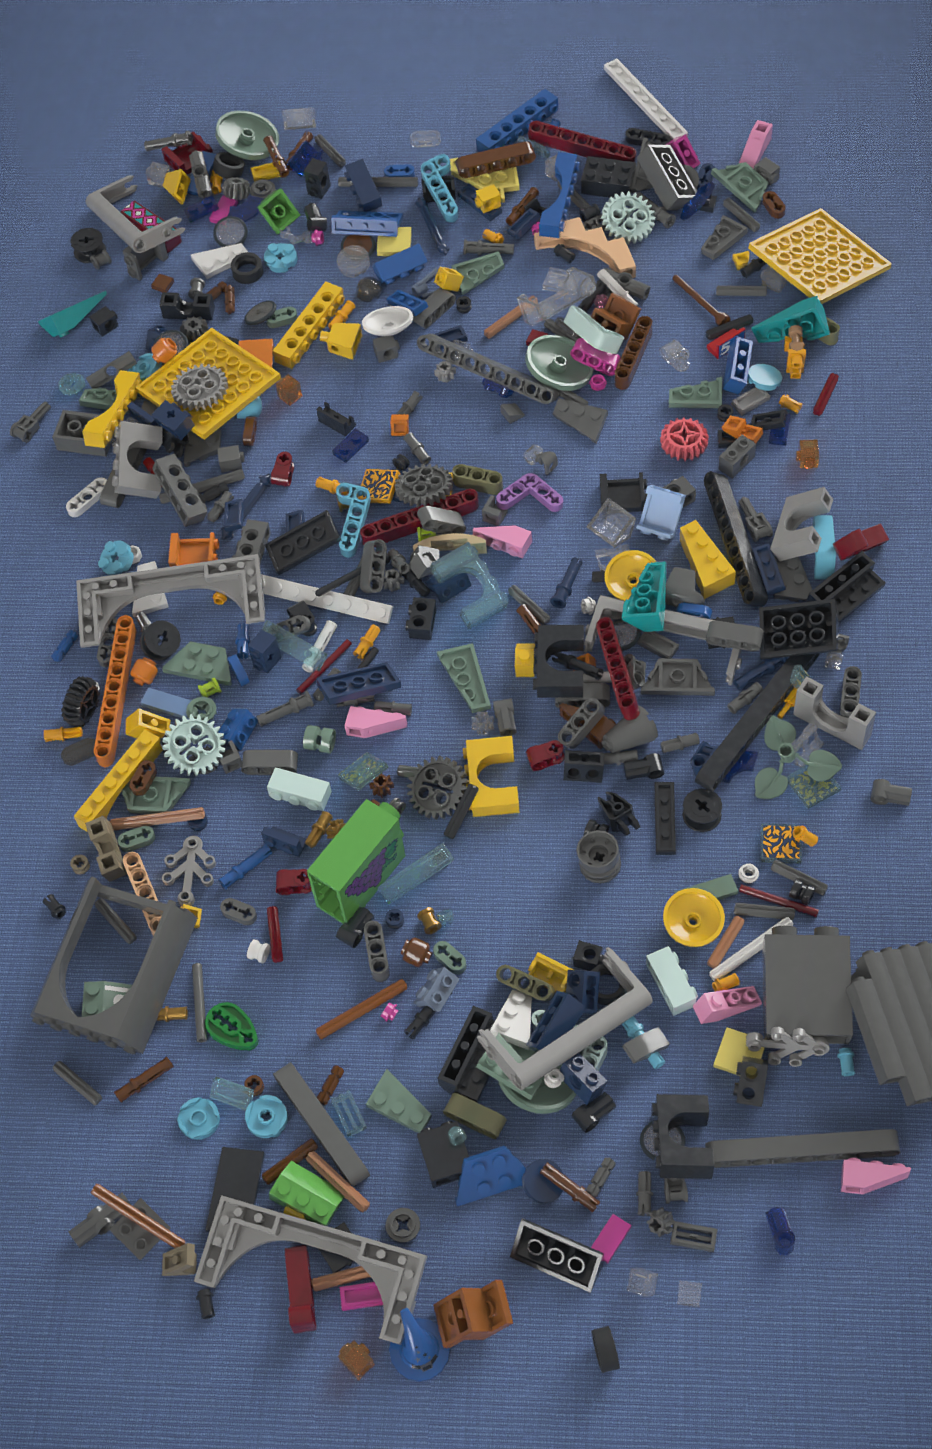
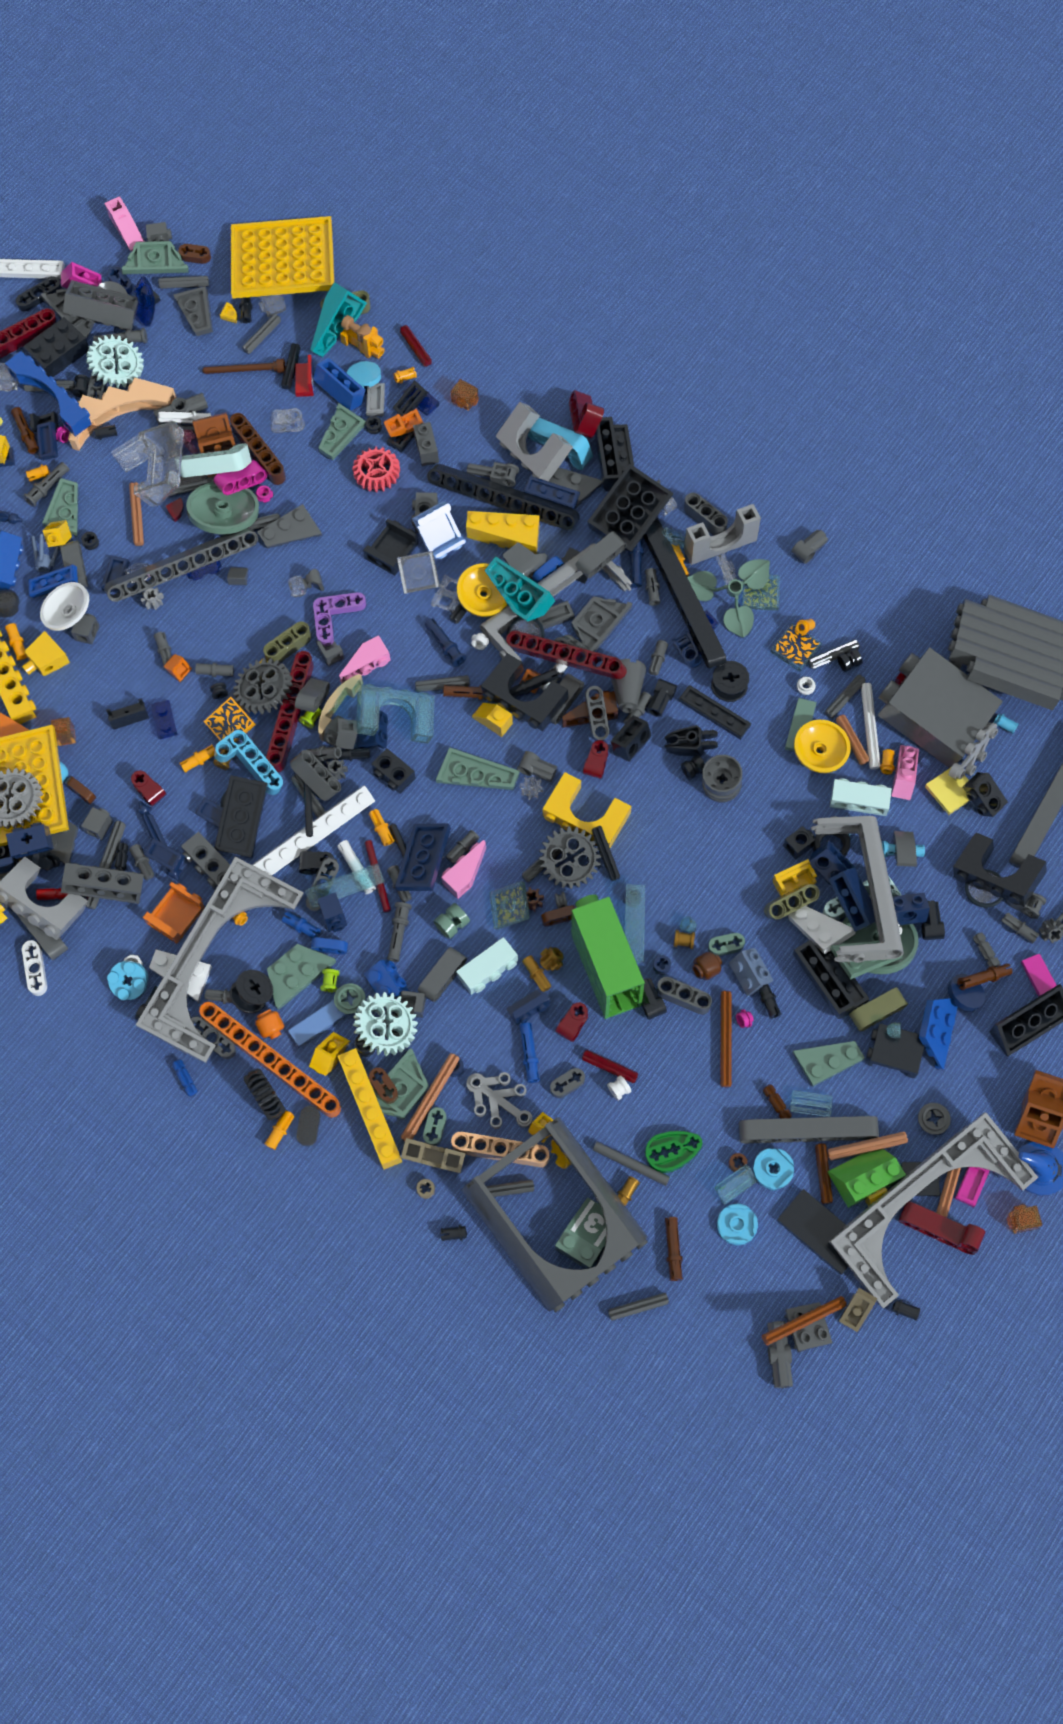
camera: 60 degrees left, 10 degrees up
(778, 900) = (843, 680): dark red bar -> none

